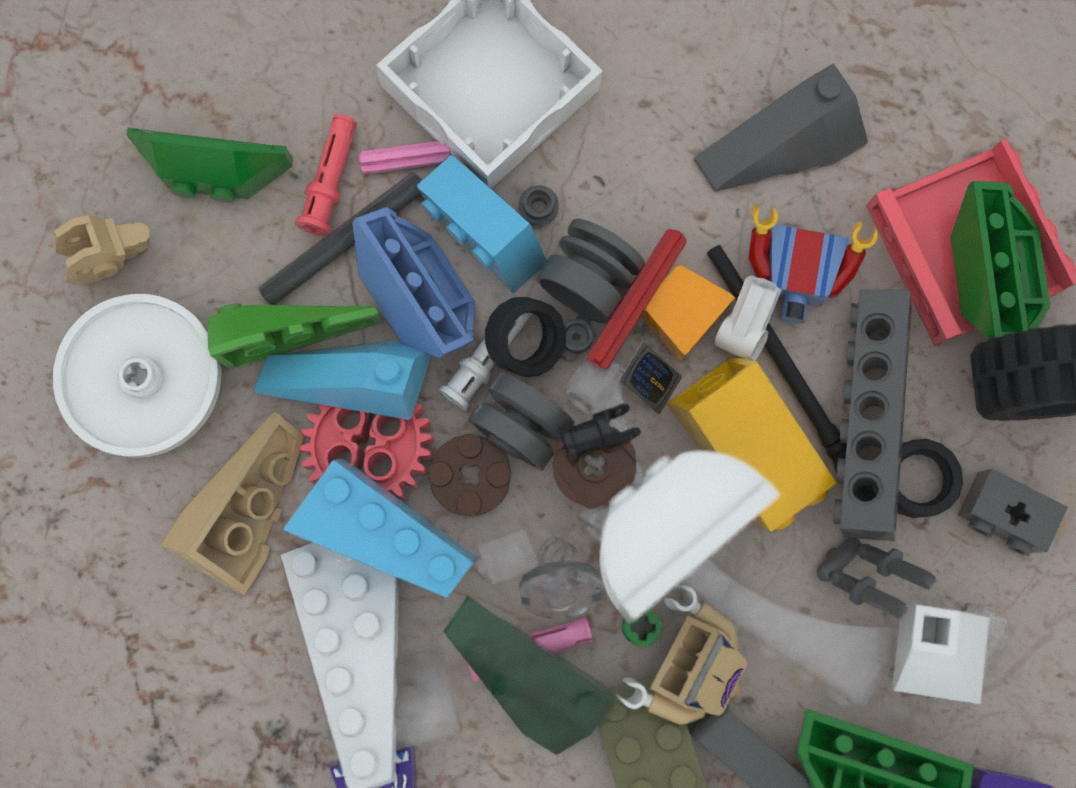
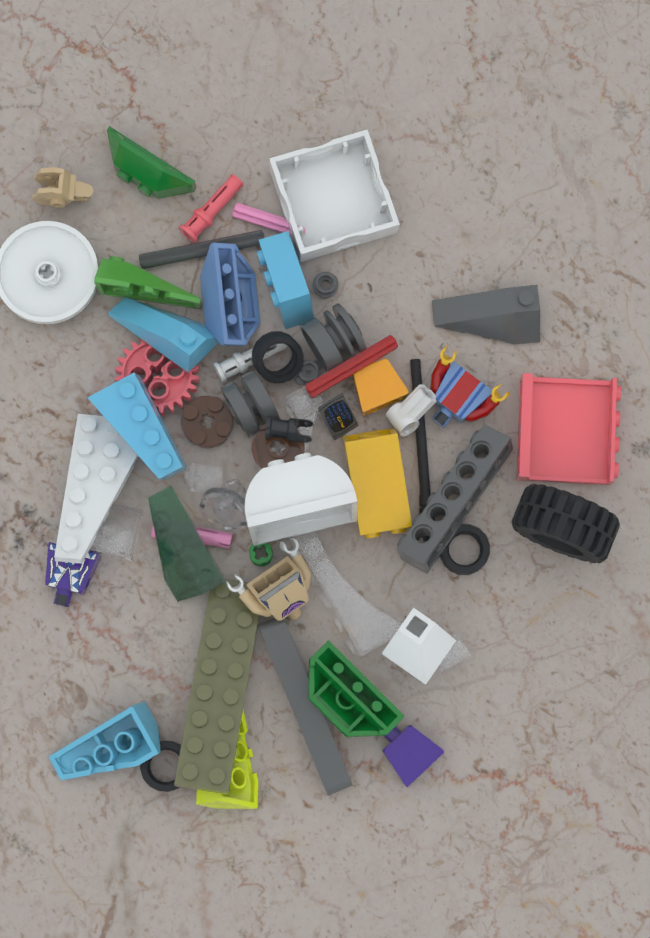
camera: 25 degrees right, 0 degrees up
(232, 516) = (60, 379): tan wedge -> none
(864, 589) = (395, 591): dark grey piece -> none
(998, 262) = (574, 446): green wedge -> none
(1035, 513) = (505, 579): dark grey brick -> none

